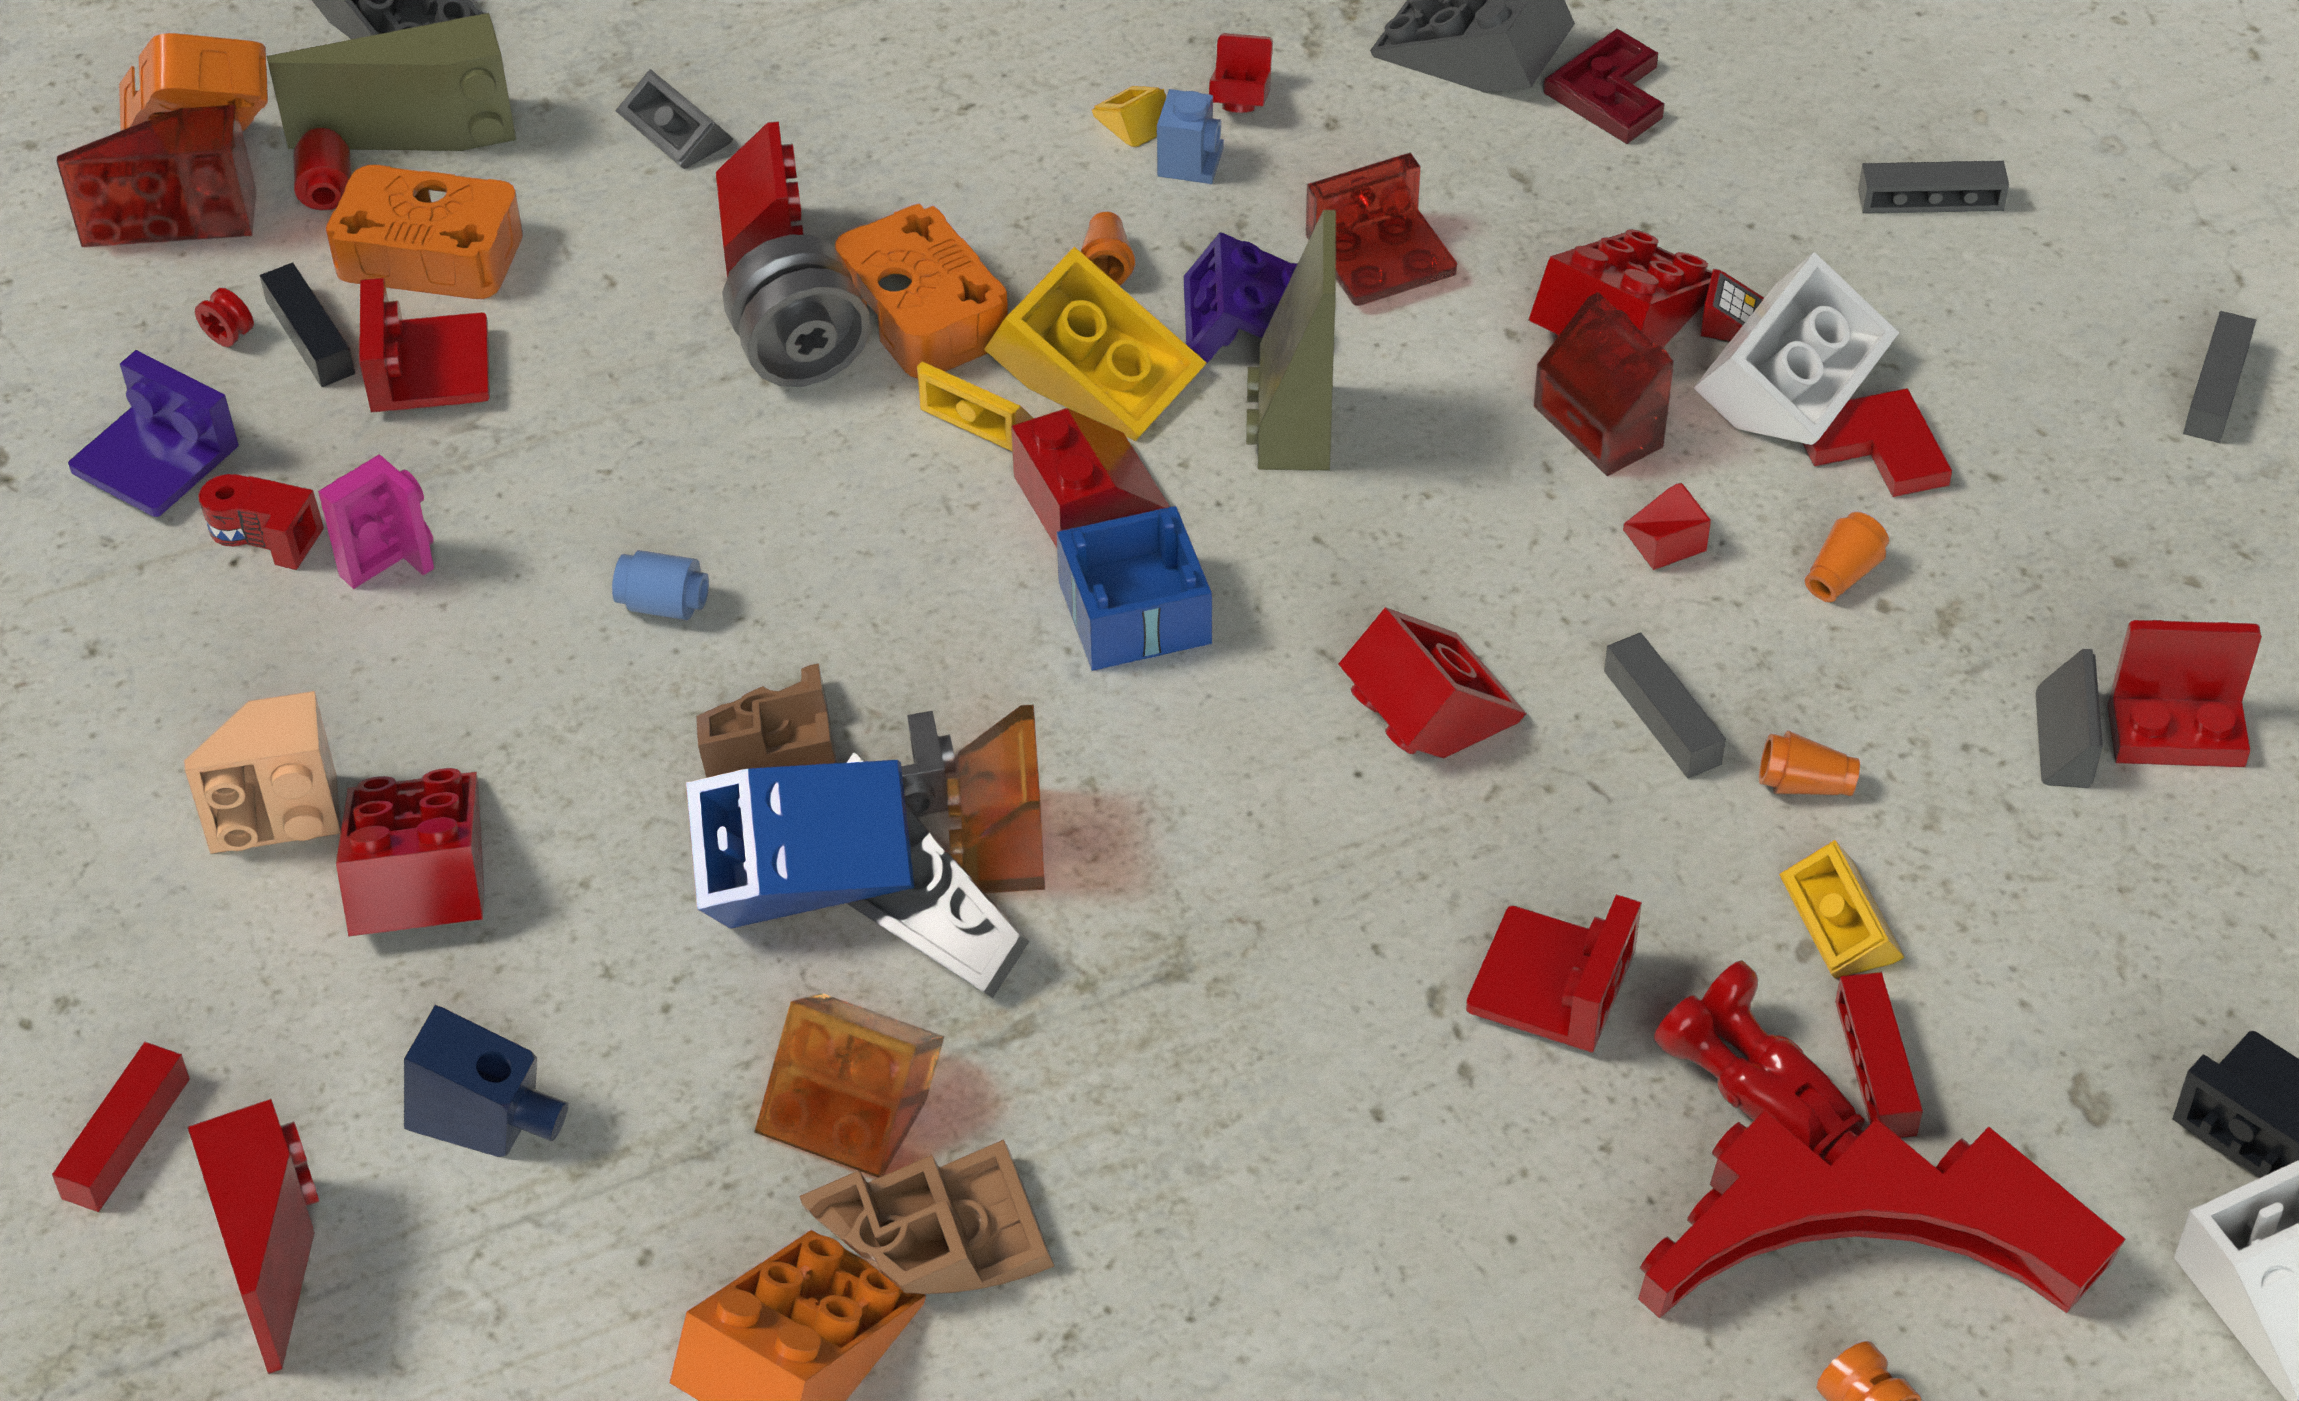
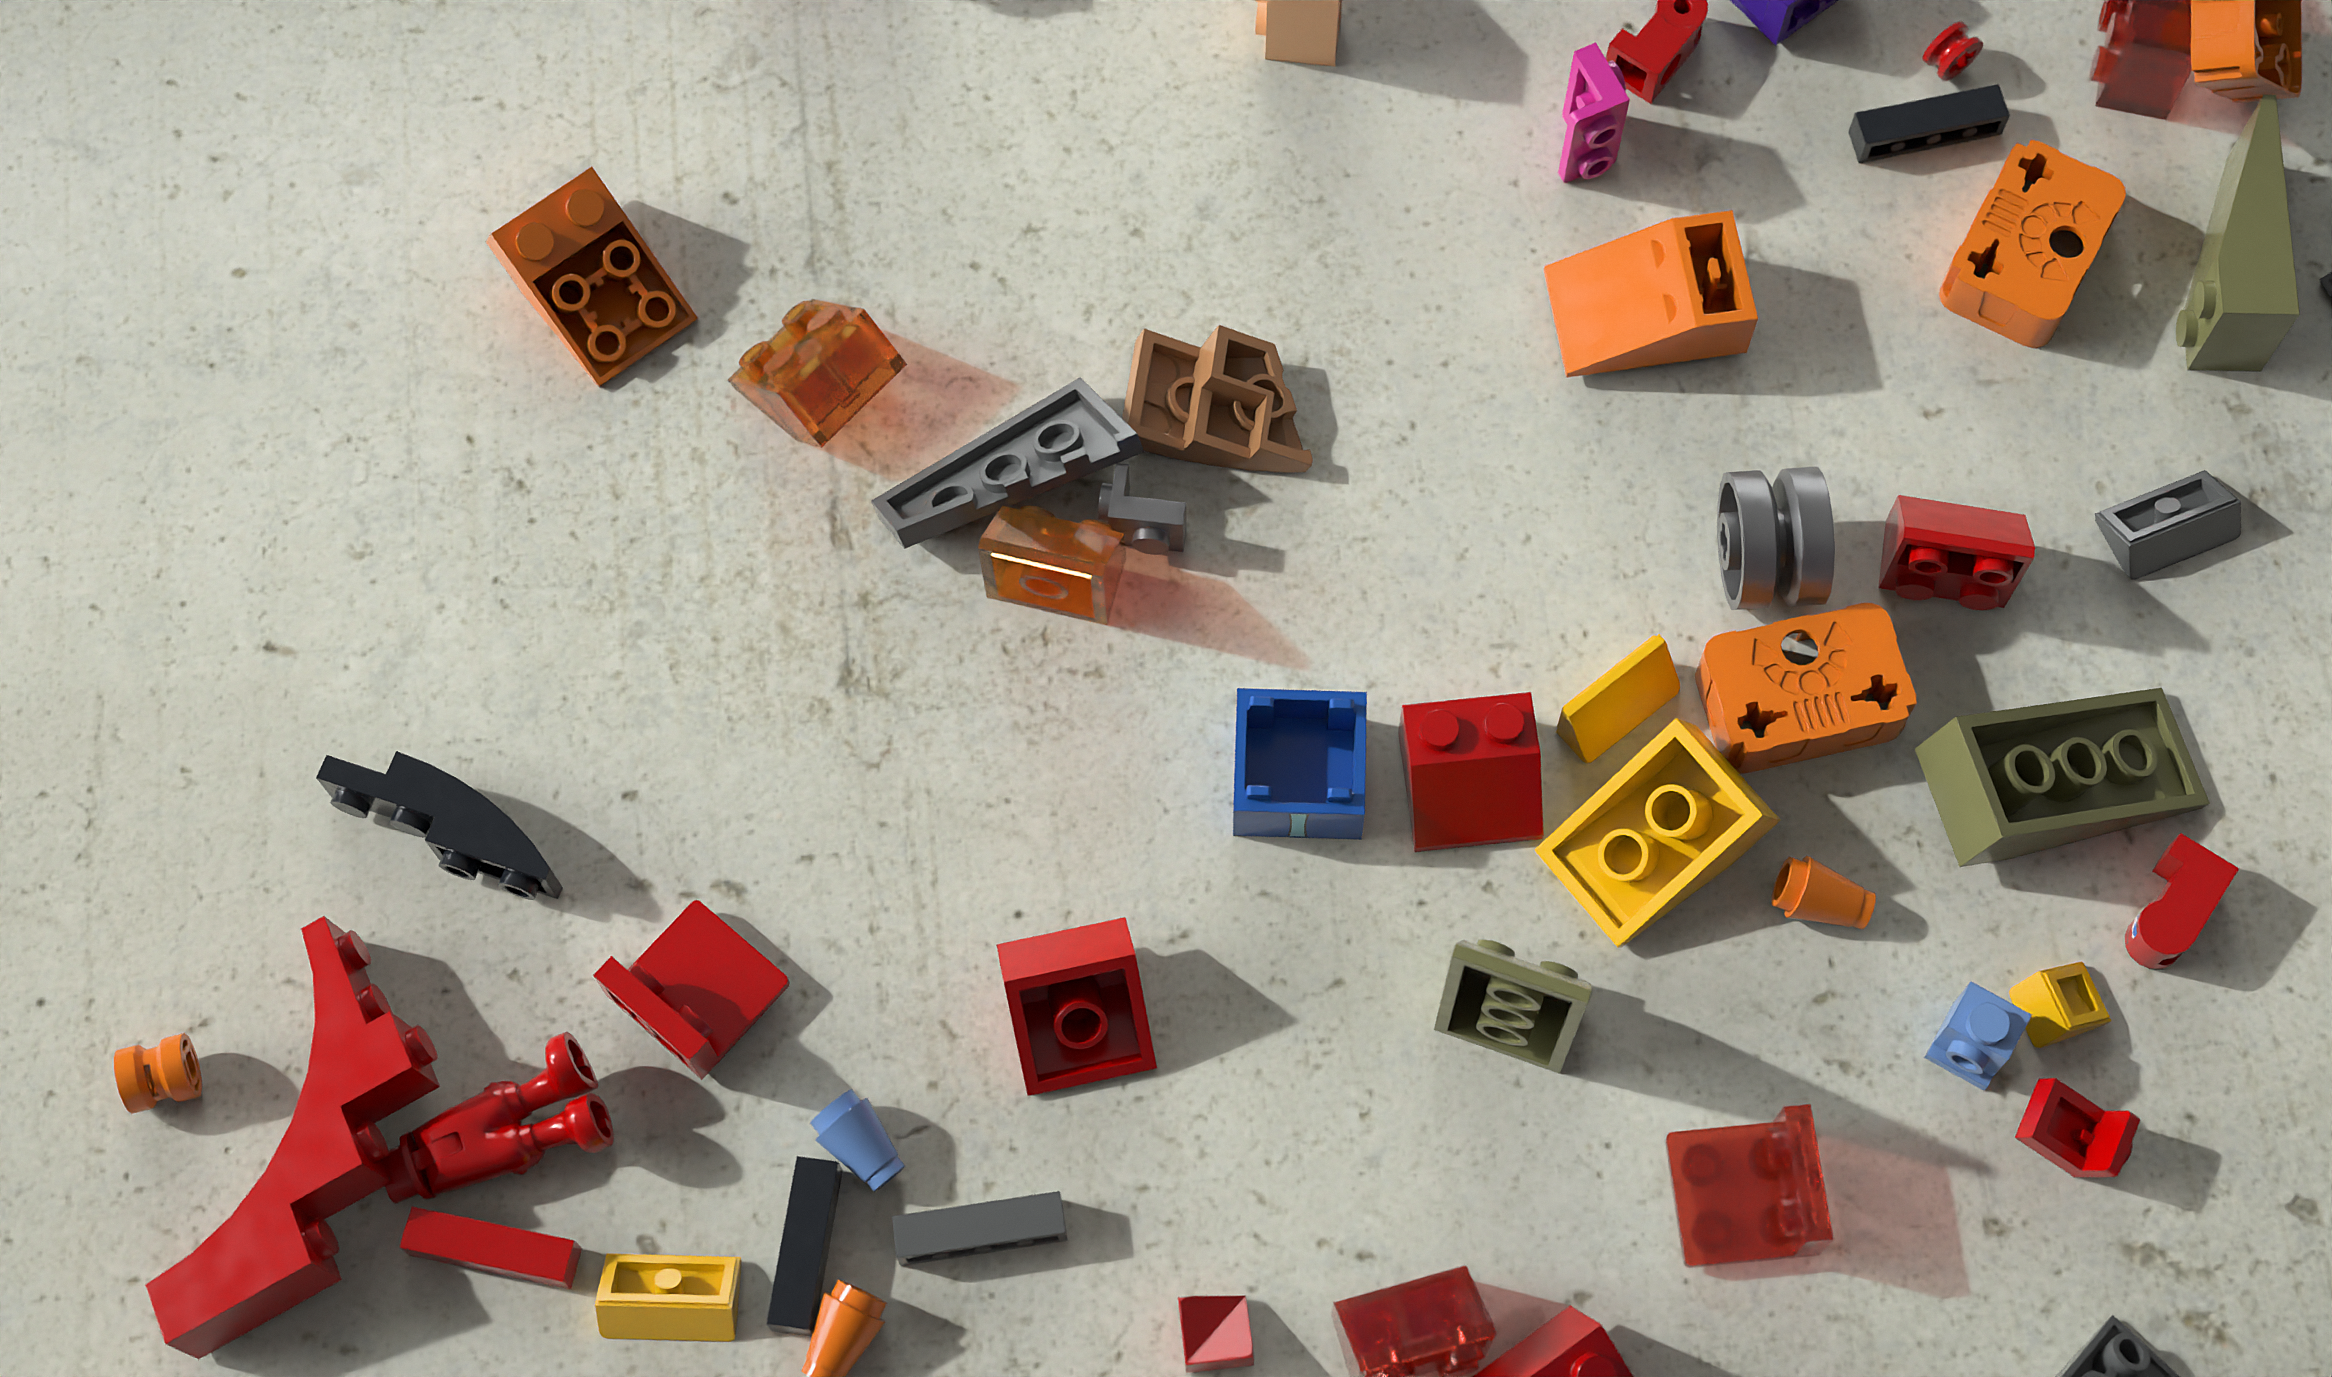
camera: 110 degrees right, 20 degrees up
(321, 168) = (2158, 167): red brick -> none
(411, 853) = (1205, 94): red slope -> none
(420, 358) = (1846, 203): red bracket -> none
(474, 1087) = (908, 84): dark blue torso -> none
(560, 451) = (1654, 297): none -> orange slope
(660, 584) = (1455, 350): medium blue brick -> none
(797, 839) = (1061, 365): blue slope -> none
(938, 1225) = (651, 406): medium nougat slope -> none
(946, 138) = (2058, 773): none -> olive slope
(1025, 56) = (2183, 907): none -> red leg
(1231, 290) = (1685, 1023): dark purple bracket -> none
(1482, 1234) = (461, 823): none -> black slope
(1631, 810) = (858, 1140): none -> medium blue cone
(1746, 821) = (804, 1246): none -> black piece

